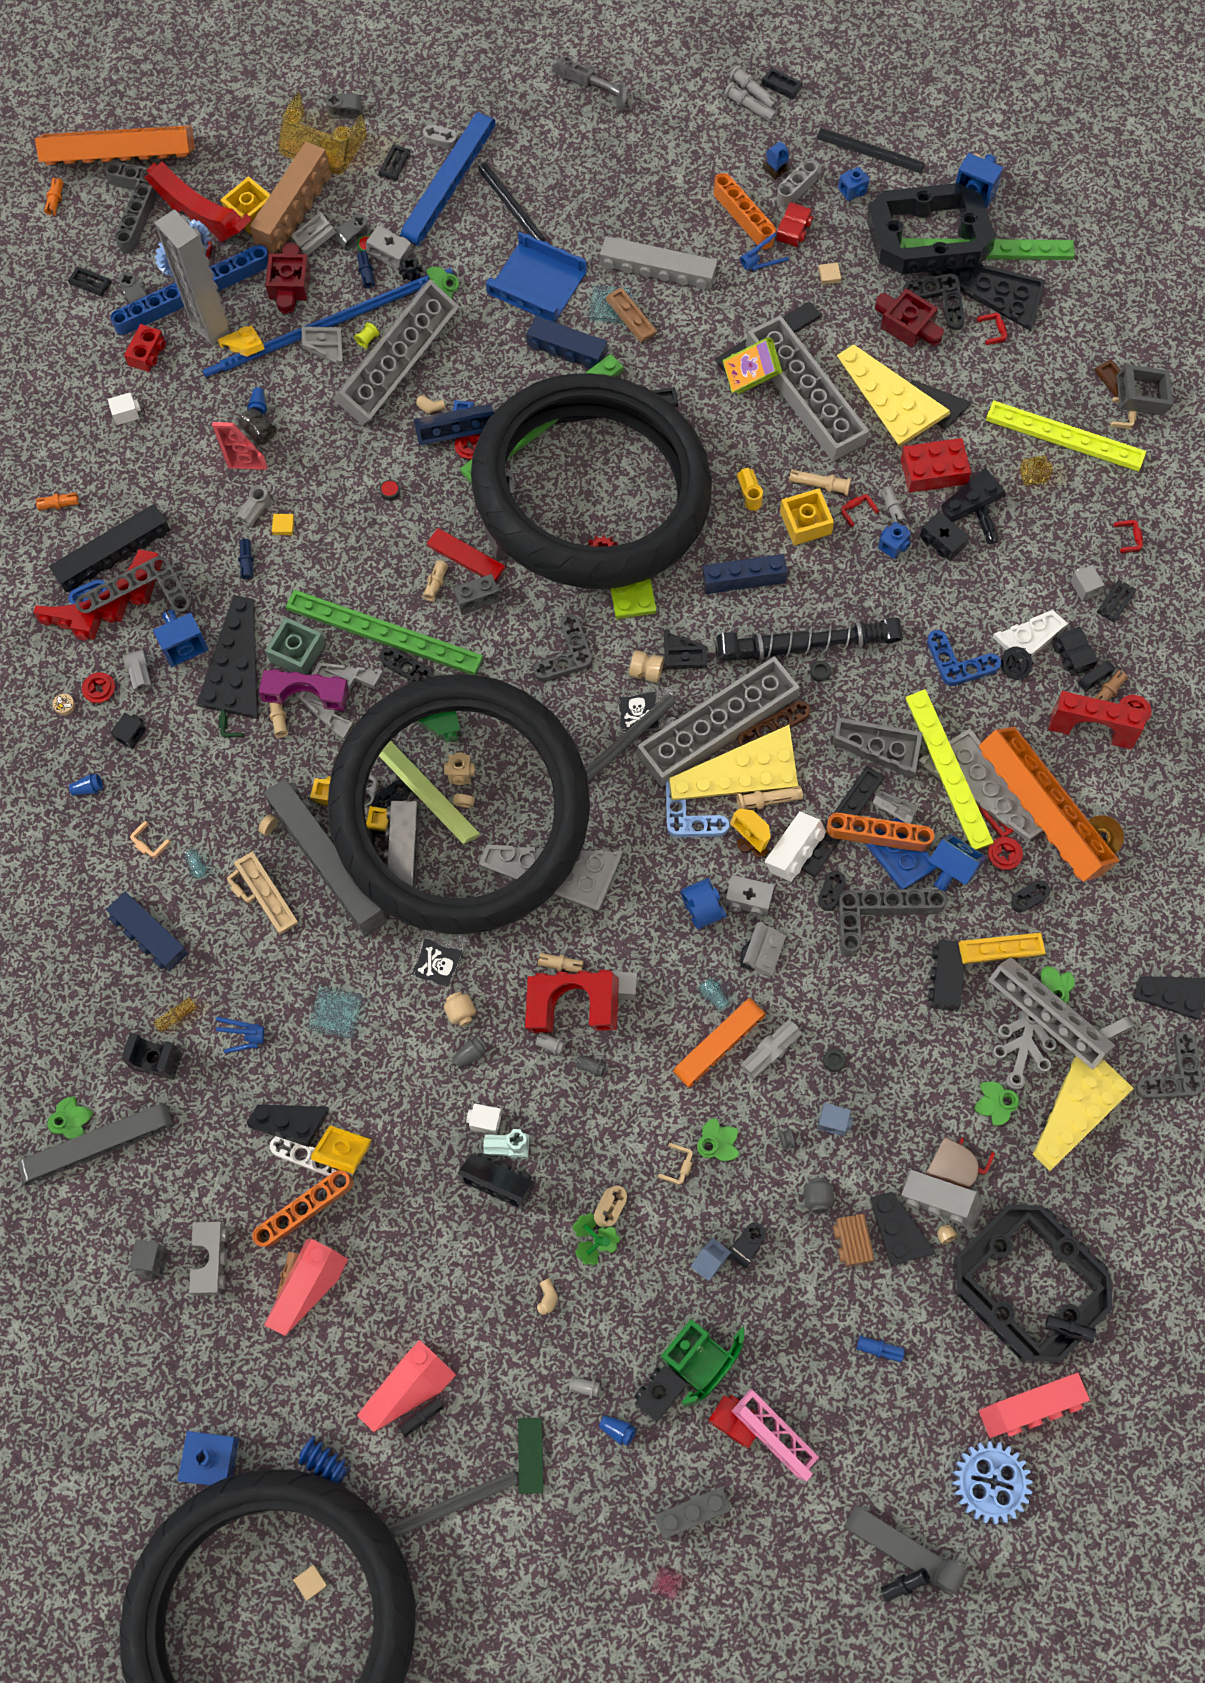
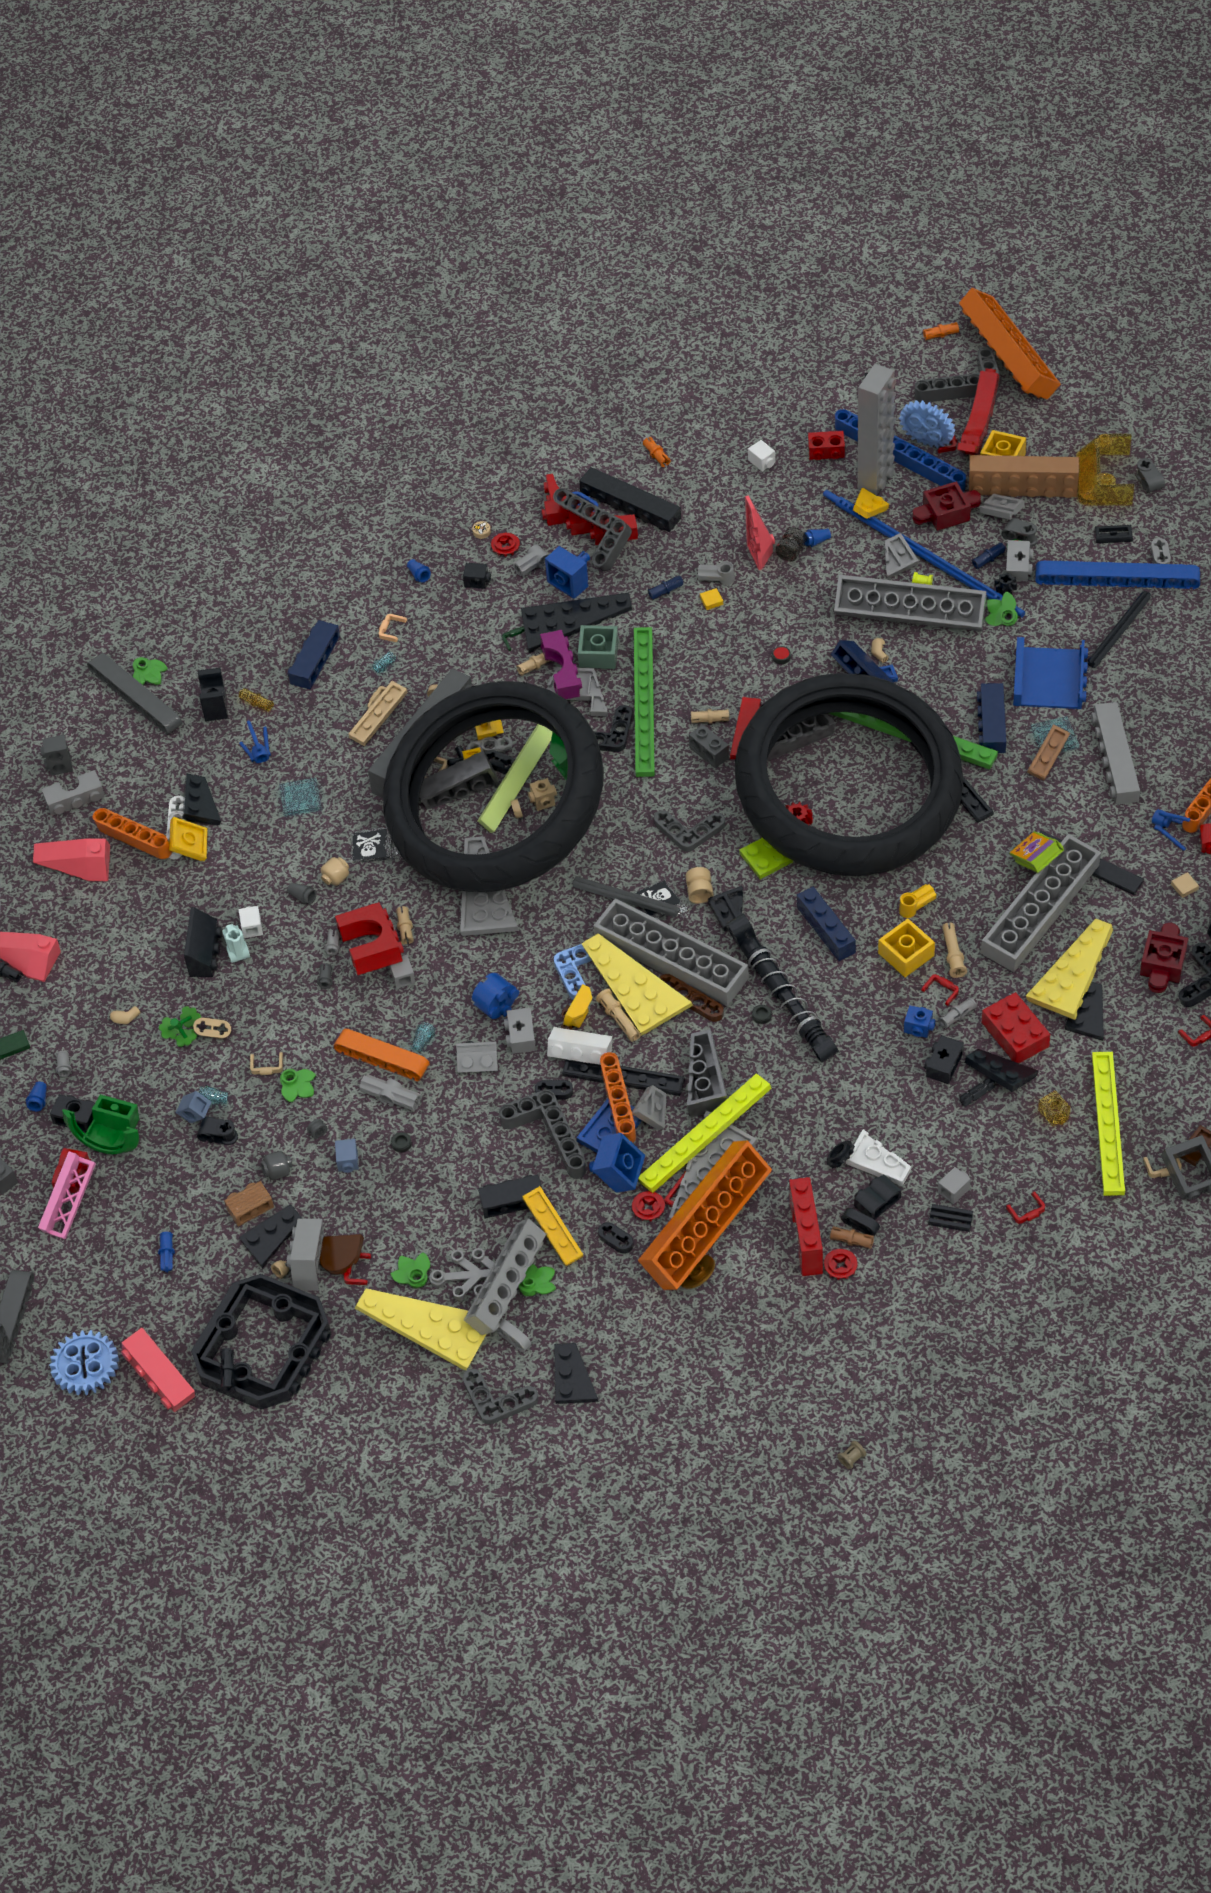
camera: 70 degrees right, 15 degrees down
(698, 1235) = (214, 1095): none -> clear light blue cone
(954, 667) = (816, 1112): blue beam -> none

